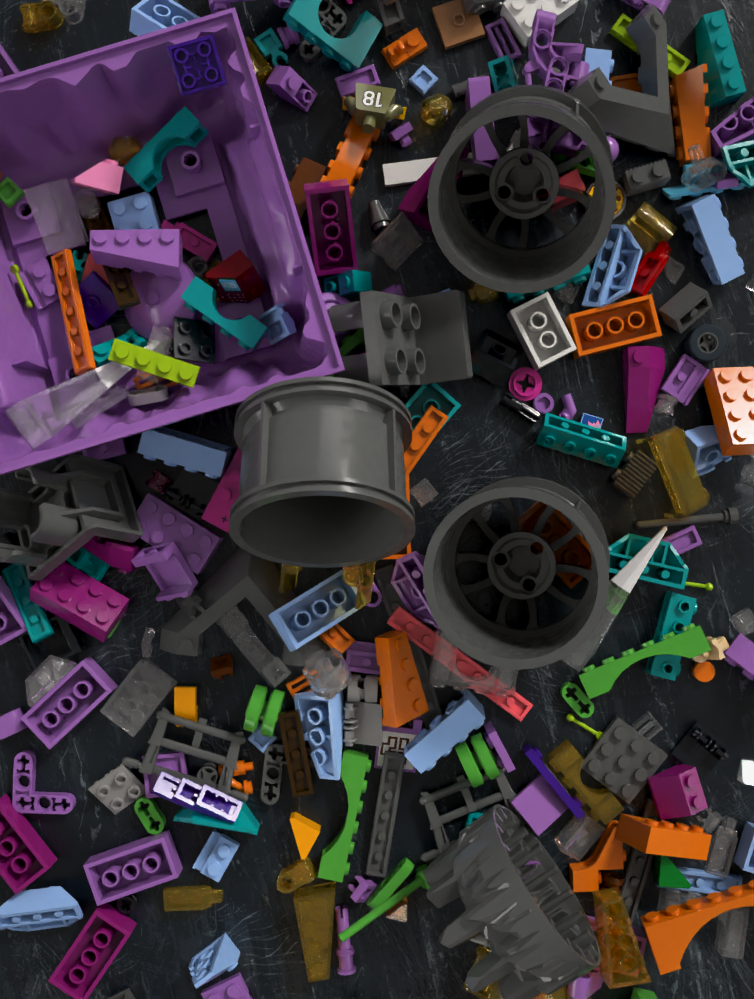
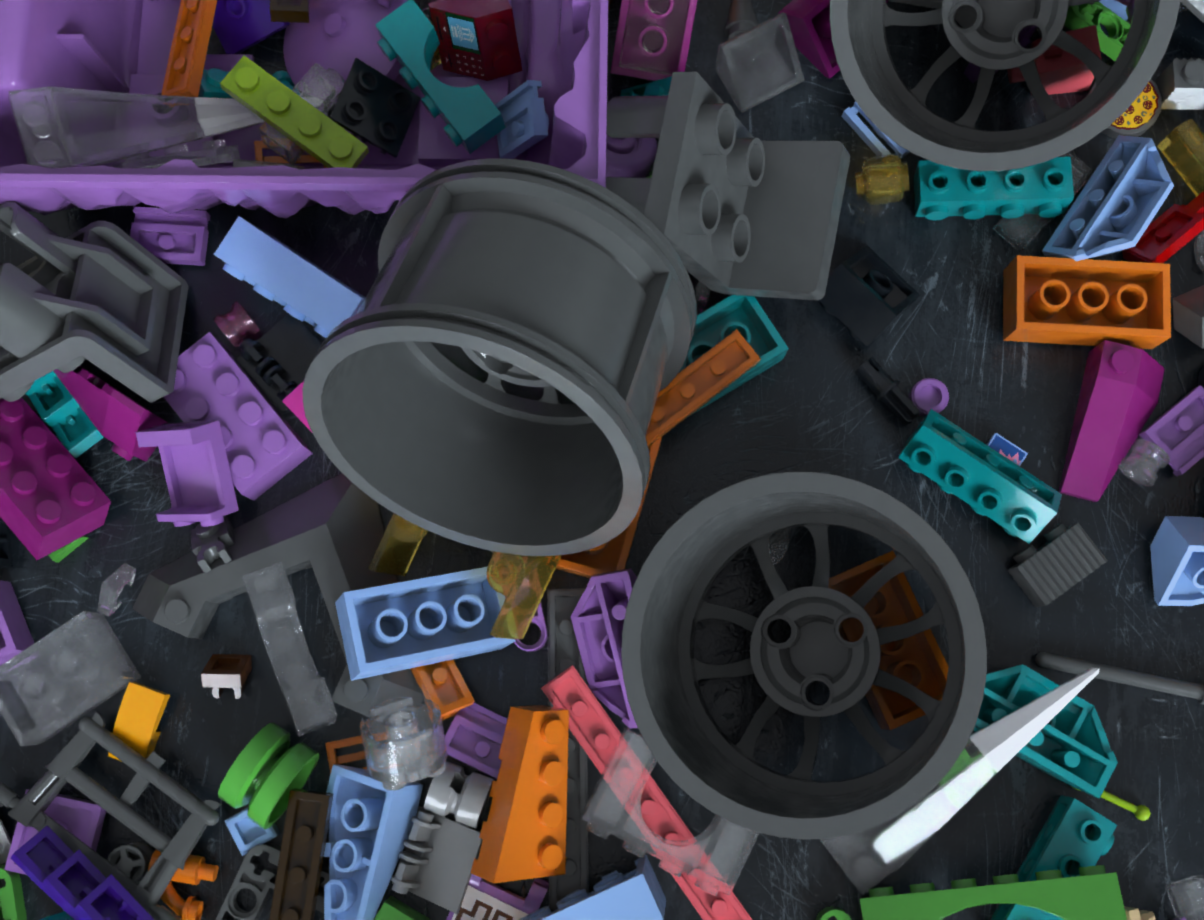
camera: 20 degrees right, 10 degrees down
(423, 492) = (678, 483): clear slope -> none
(533, 379) = (924, 352): dark pink gear -> none
(541, 331) = (961, 273): white brick -> none
(569, 407) = (973, 417): medium lavender arm -> none
(677, 471) = (1142, 576): clear yellow windscreen -> none
(684, 539) = (1121, 711): medium lavender tile -> none

